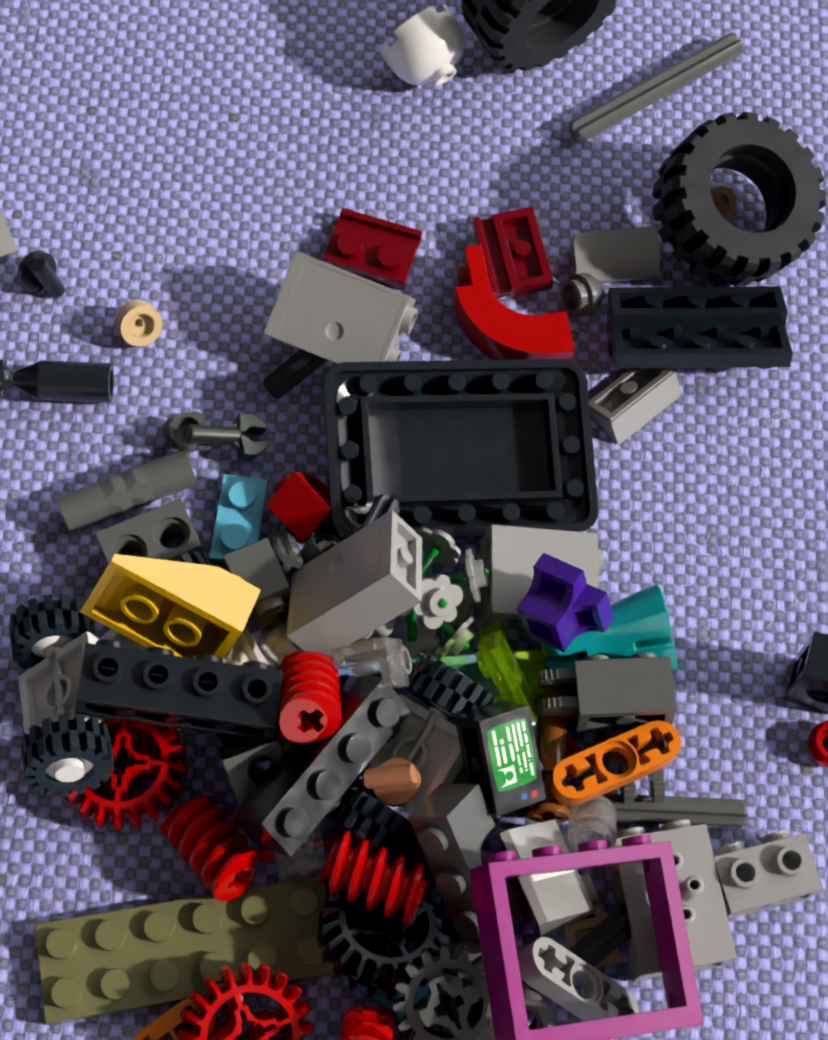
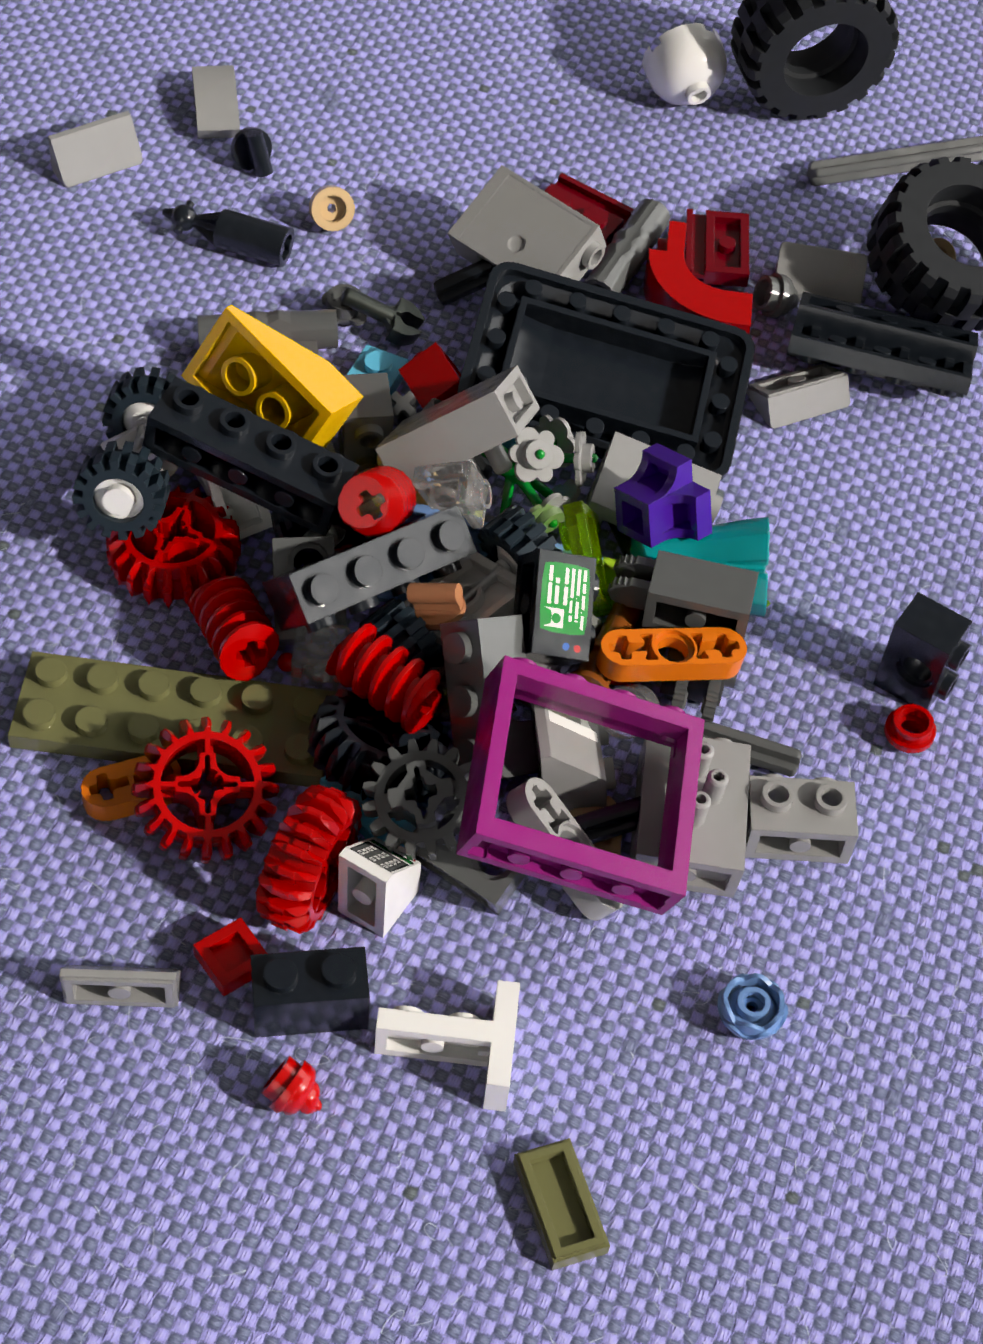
camera: 15 degrees right, 15 degrees down
(432, 286) = (630, 246): none -> dark grey axle

